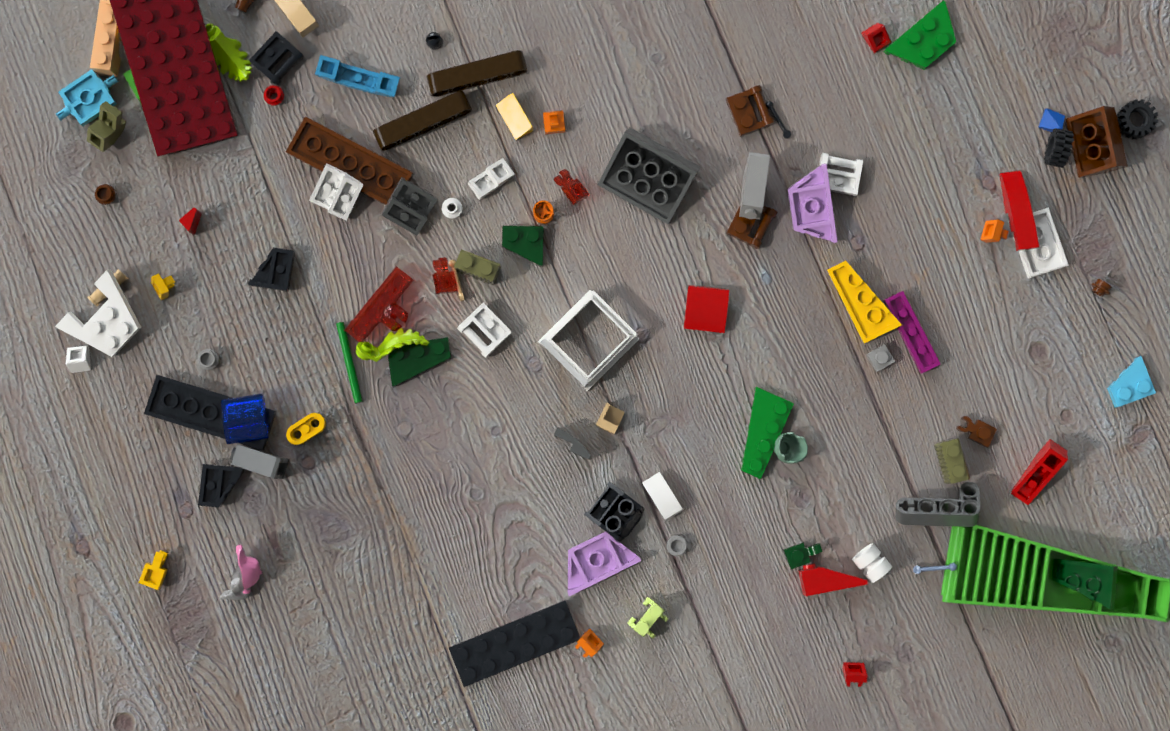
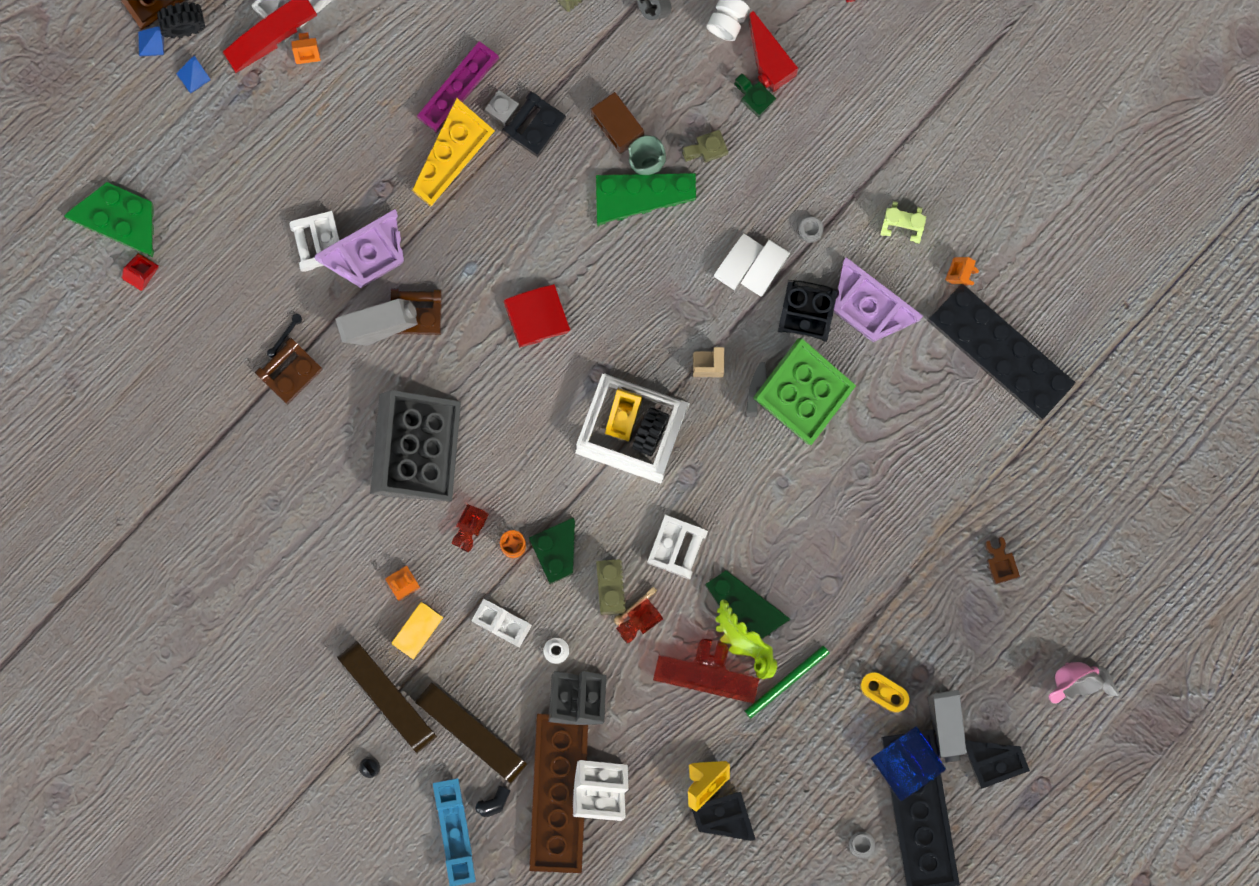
camera: 115 degrees left, 5 degrees down
(153, 573) = (1129, 783): yellow plate -> none
(305, 273) = (707, 779): none -> yellow slope
(354, 561) = (1002, 565): none -> reddish brown plate
(363, 114) = (495, 805): none -> black arm
(553, 477) = (804, 391): none -> bright green plate
(577, 349) = (650, 431): none -> black tyre
(599, 336) = (623, 414): none -> yellow slope
(676, 478) = (738, 261): none -> white slope
(777, 500) = (709, 146): none -> olive plate
(827, 438) = (616, 122): none -> reddish brown panel
(850, 380) = (540, 129): none -> black plate
(1011, 141) = (193, 75): none -> blue slope

